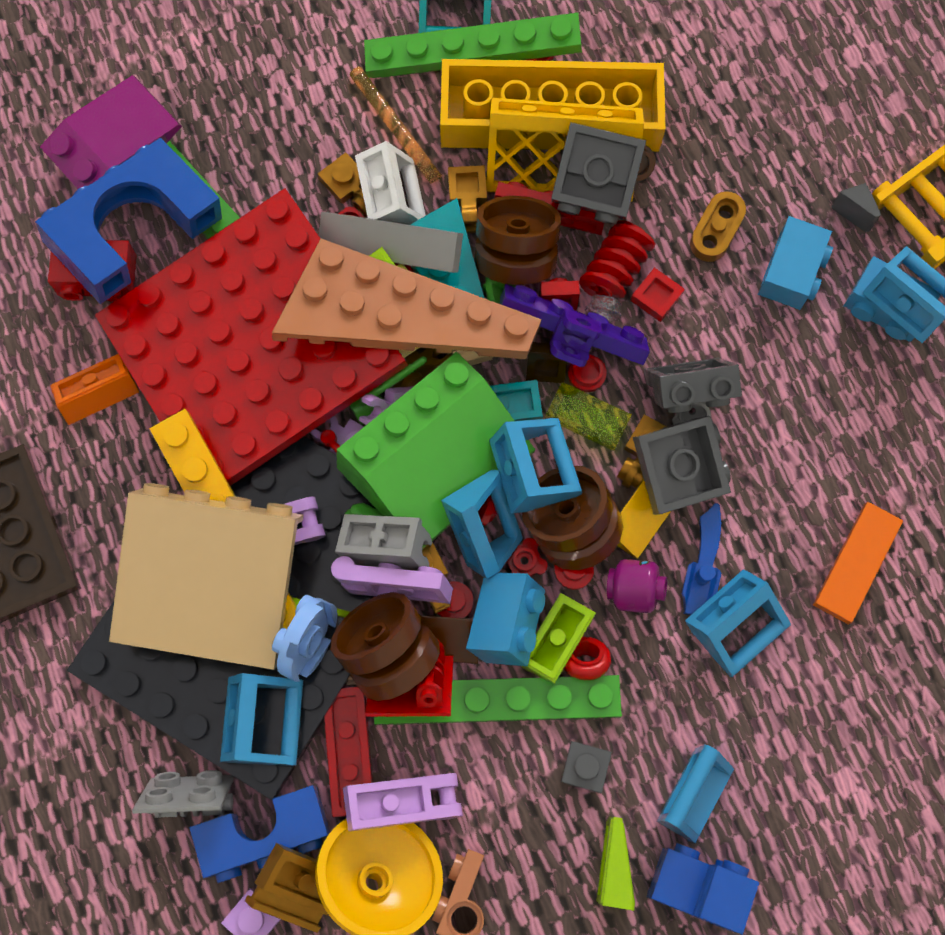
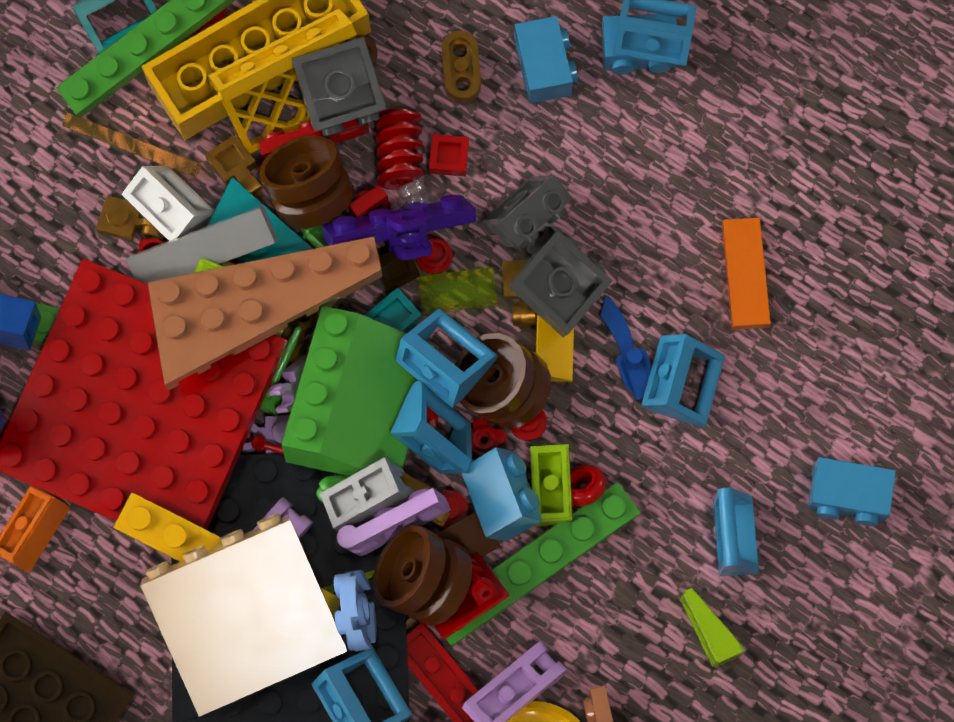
camera: 30 degrees left, 0 degrees up
(586, 767) = (638, 570): dark grey plate -> none
(636, 586) = (585, 403): magenta head -> none
(708, 892) = (791, 602): blue brick -> none
(830, 826) = (851, 491): none -> dark azure brick

